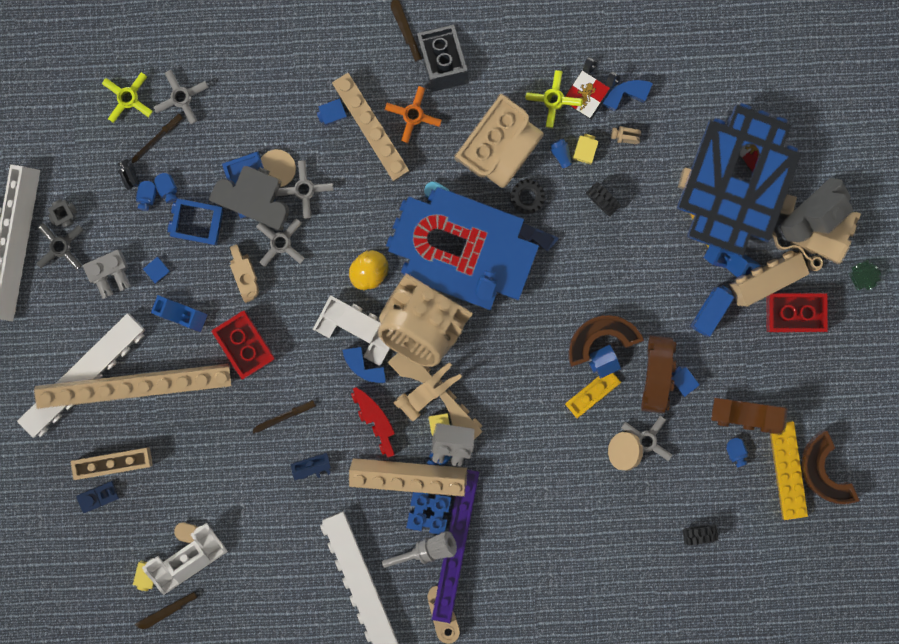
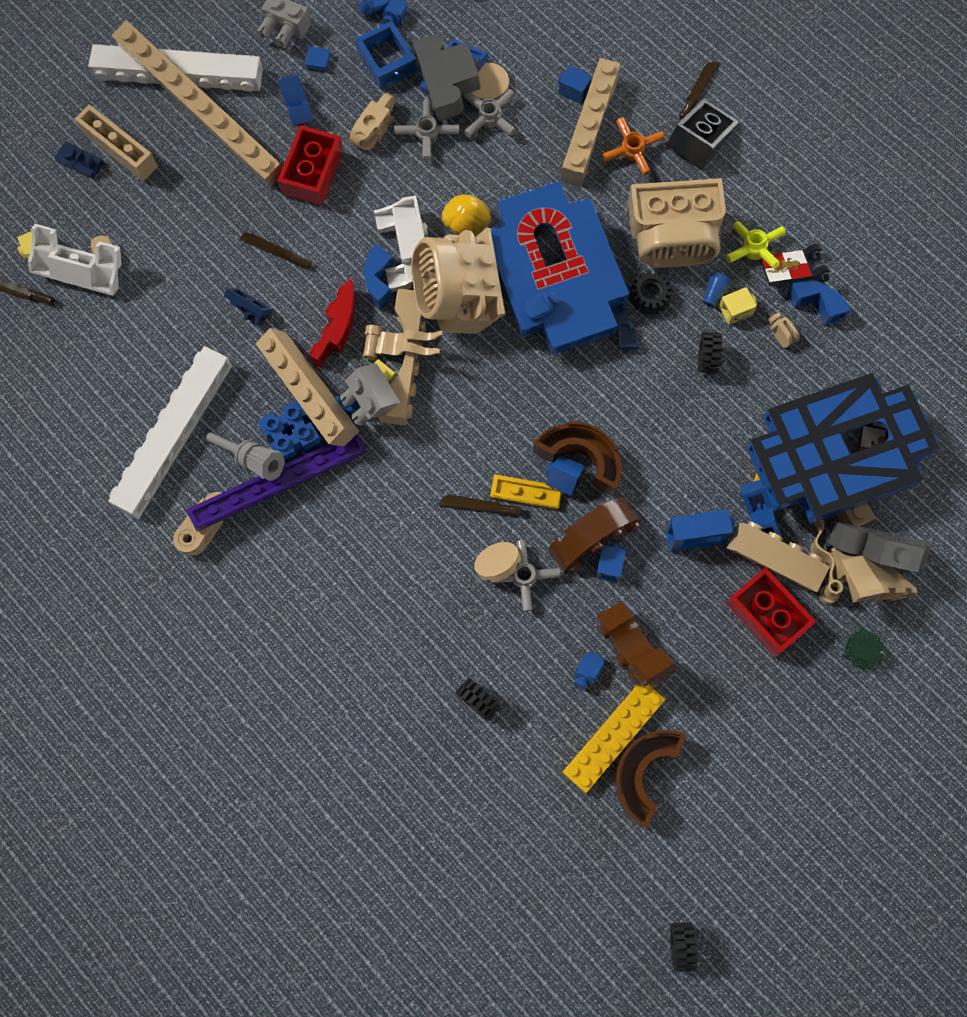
camera: 55 degrees right, 15 degrees down
(566, 437) = (481, 505): none -> dark brown piece

